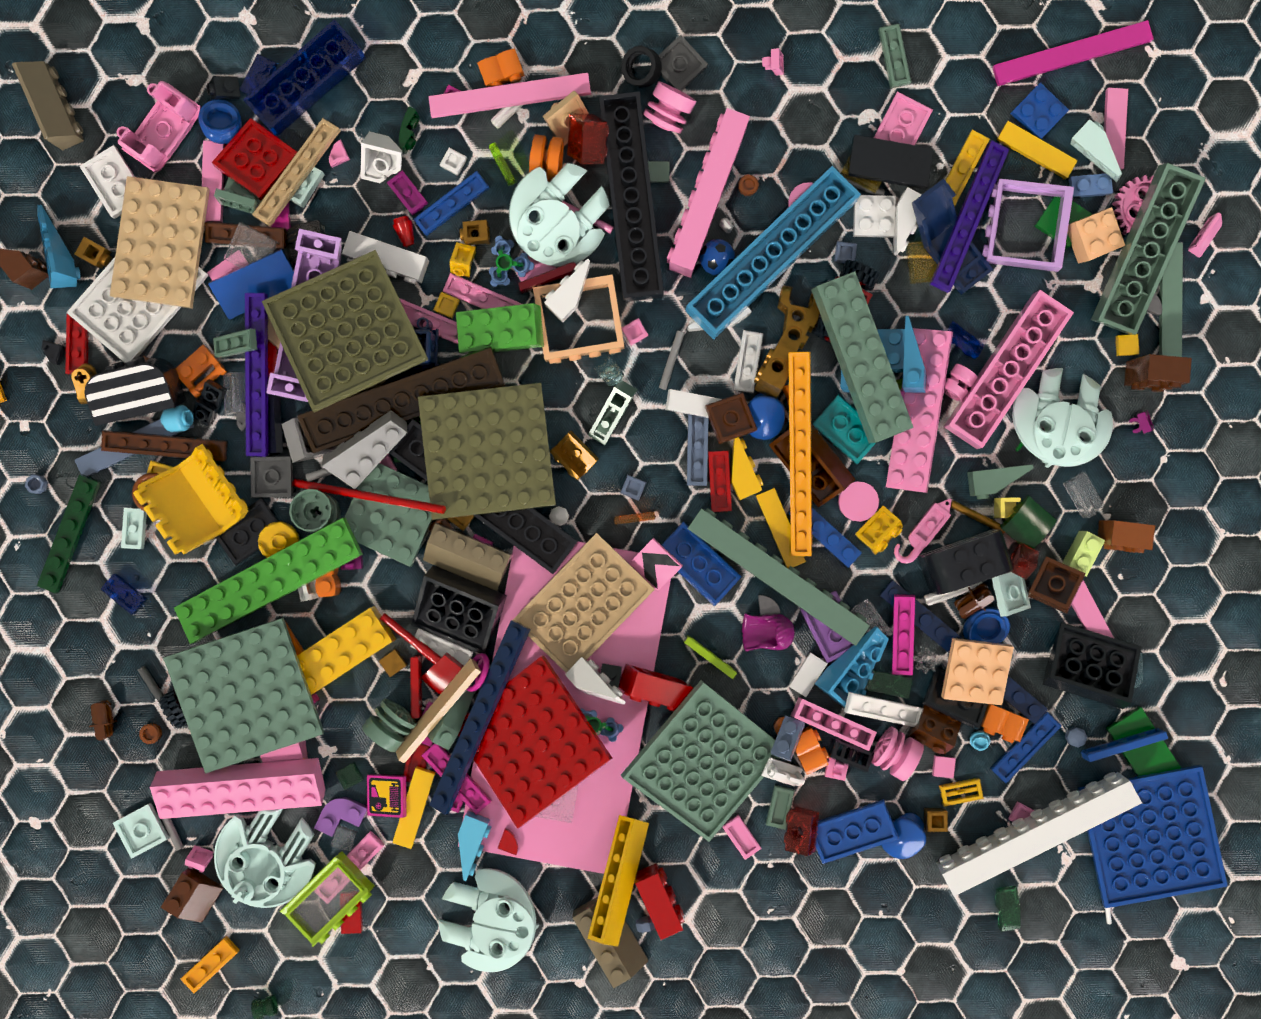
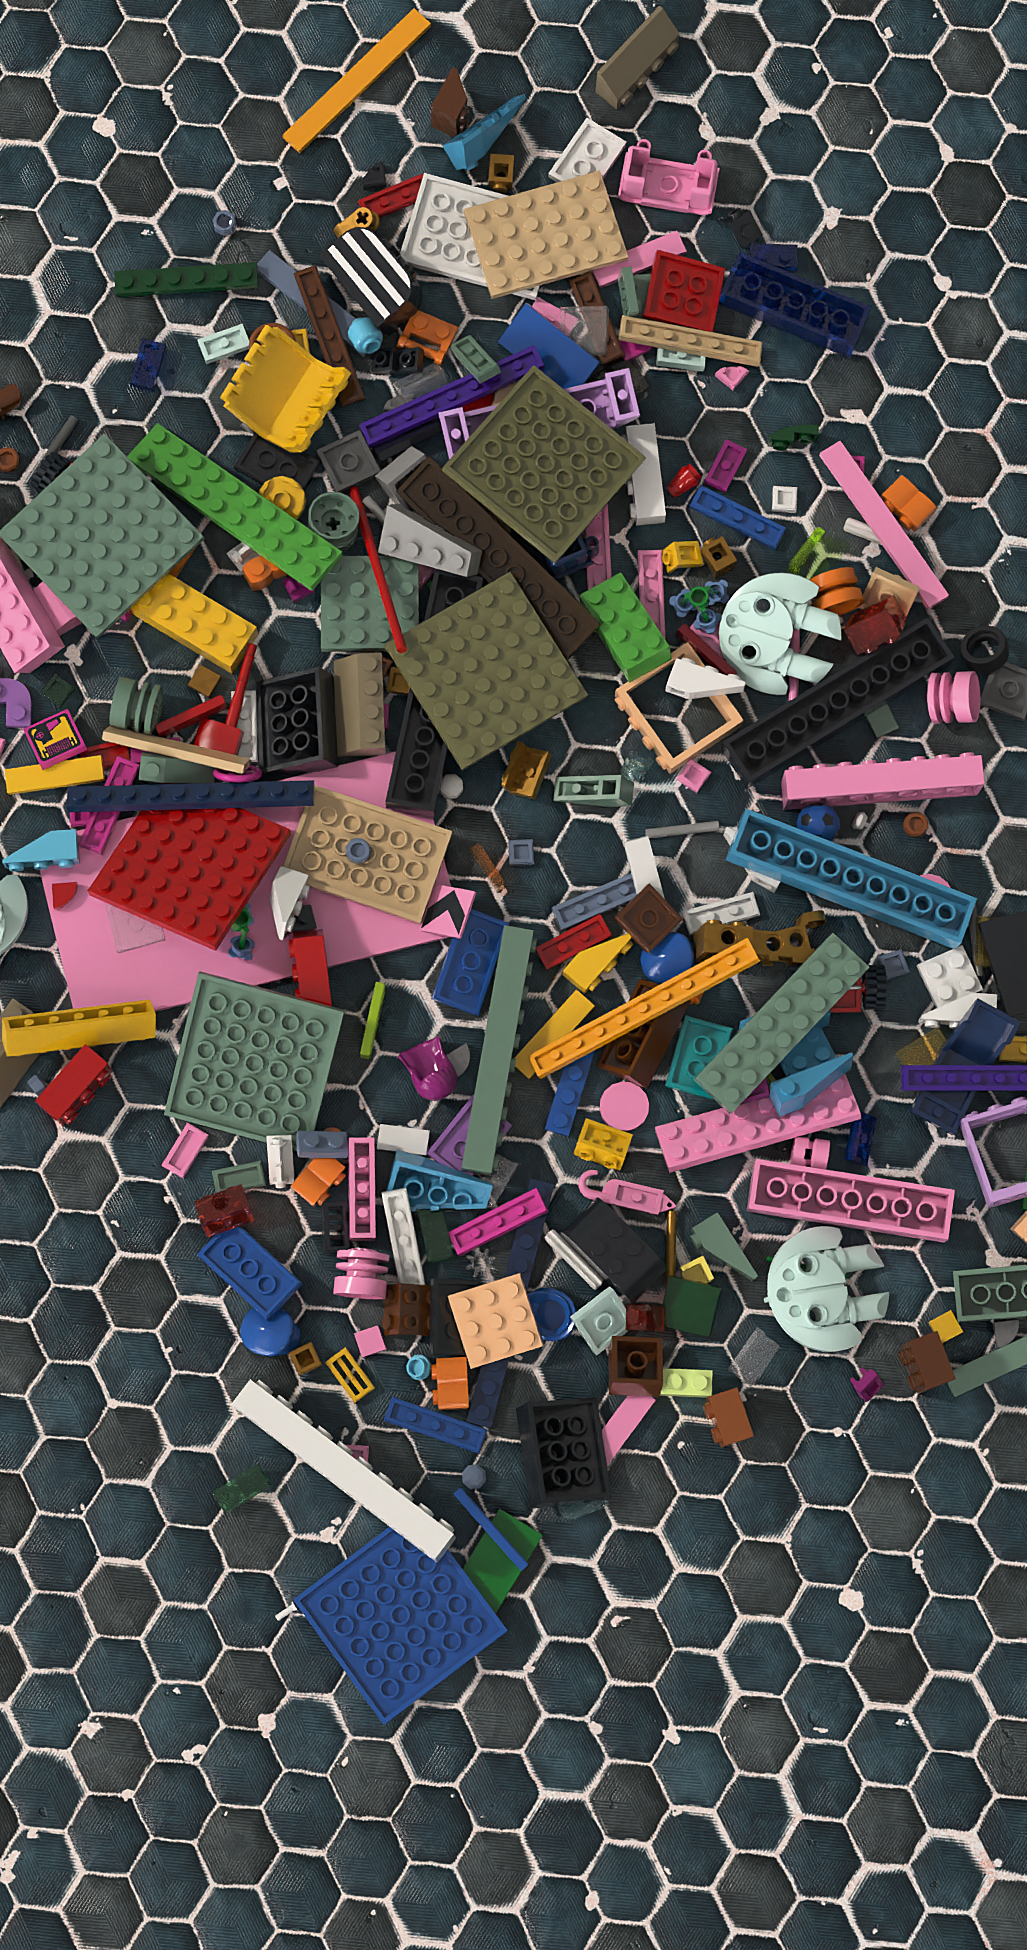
camera: 55 degrees right, 10 degrees down
(219, 121) = (706, 238): blue piece -> none
(379, 157) = (748, 419): white slope -> none
(446, 305) = (625, 562): yellow tile -> none
(579, 610) = (358, 851): none -> sand blue tile
(836, 769) = (310, 1221): bright pink tile -> none
(974, 600) = (573, 1283): reddish brown arm -> none

